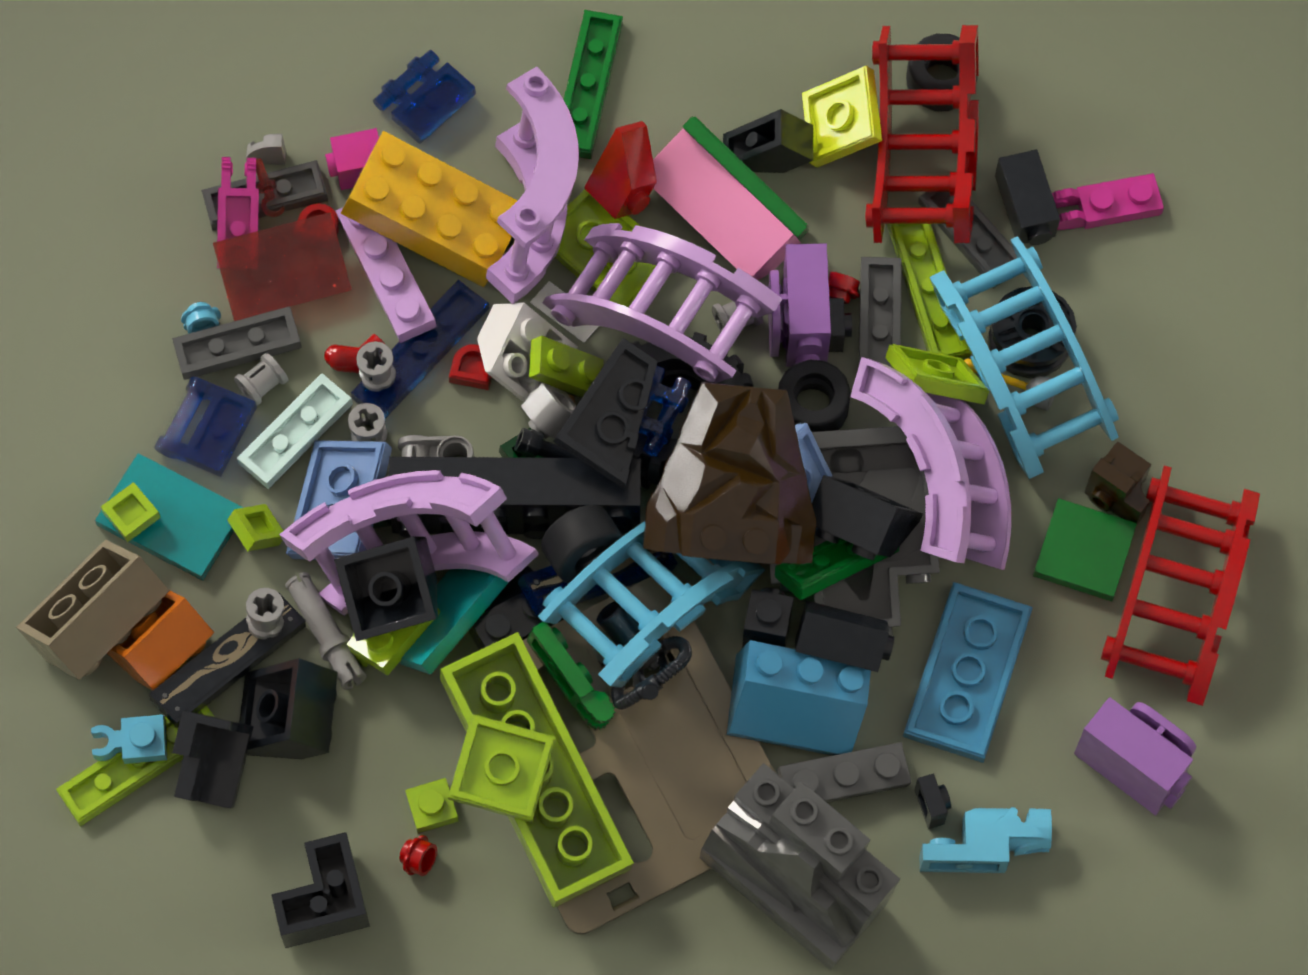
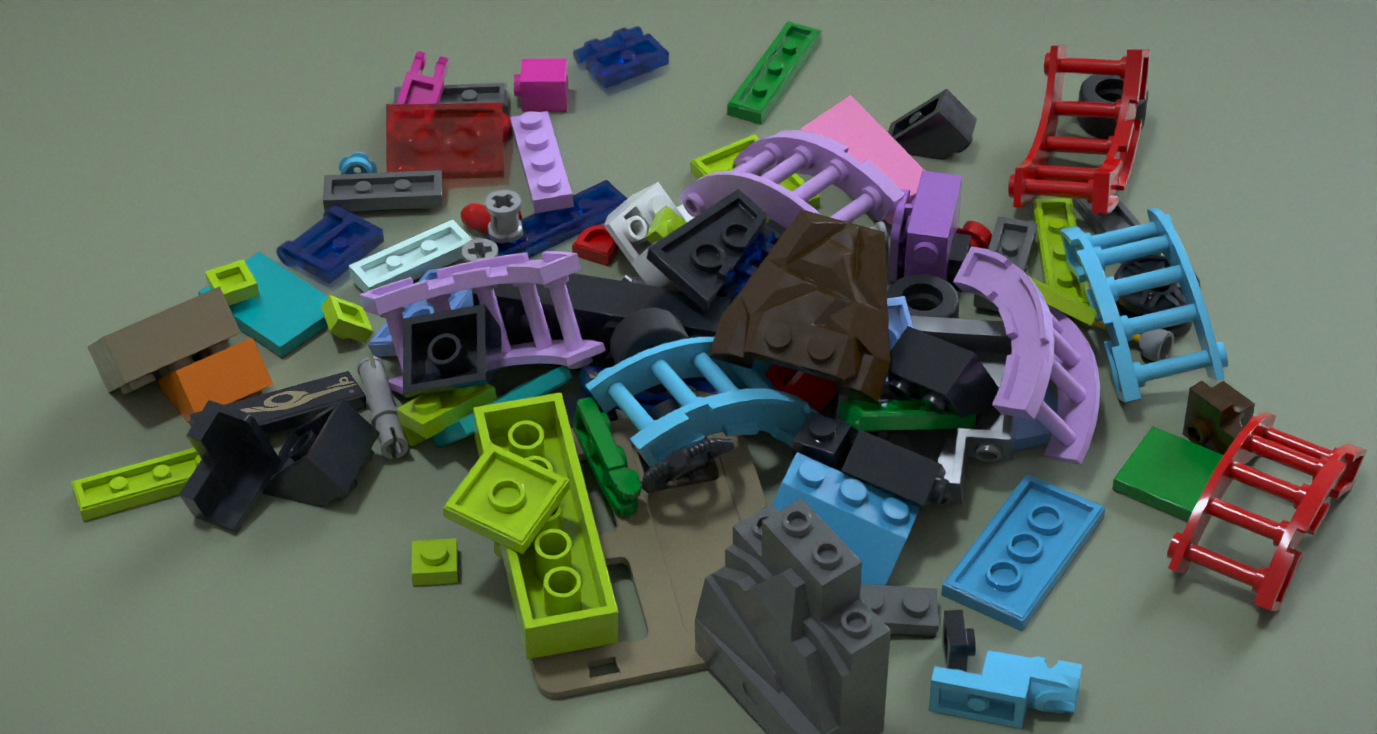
camera: 15 degrees right, 25 degrees down
(138, 740) = (163, 454): medium azure plate -> none
(261, 378) = (396, 216): light grey bush -> none
(266, 186) = (452, 87): clear red hand -> none
(268, 623) = (326, 367): light grey bush -> none
(270, 150) = (465, 68): light grey tile -> none
(330, 904) = (292, 609): black brick -> none
(418, 856) = (405, 596): red plate -> none
(430, 208) = (598, 115): yellow brick -> none
(546, 161) = (702, 100): lavender fence -> none
(624, 172) = (787, 106): red slope -> none
(746, 177) = (885, 117): green tile -> none
(843, 115) = (1007, 115): neon yellow tile -> none
(1027, 197) = (1175, 192): black brick -> none
(1109, 202) = (1252, 221): dark pink hinge -> none
(1138, 753) = (1188, 630): medium lavender brick -> none

